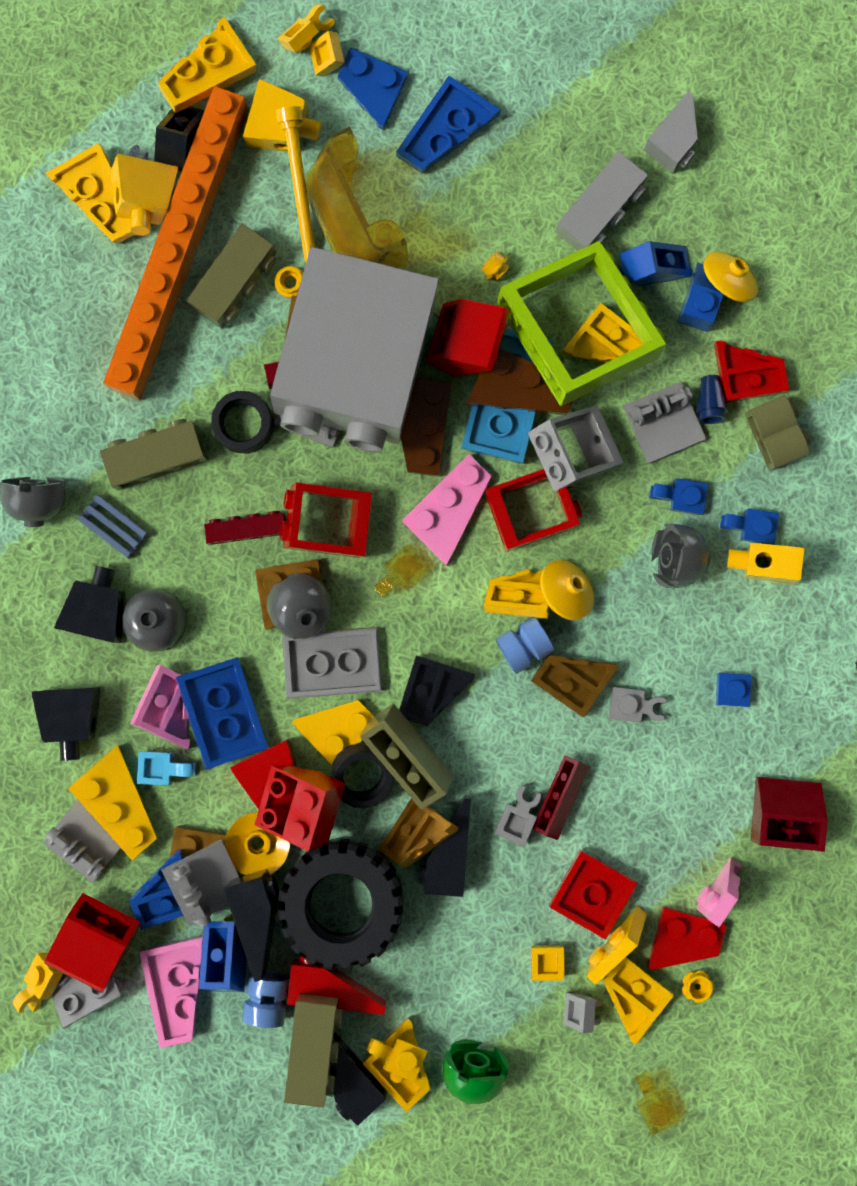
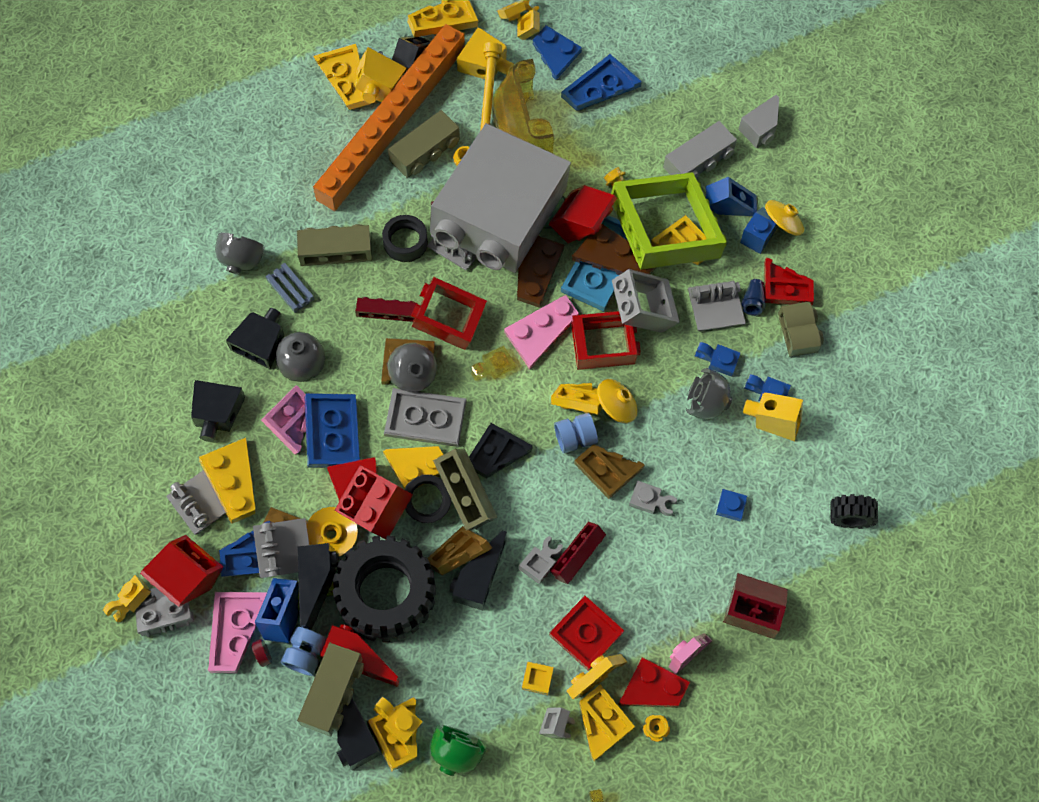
camera: 10 degrees right, 20 degrees down
(158, 768) = (272, 460): medium azure plate -> none
(216, 1010) = (261, 653): none -> dark red tile

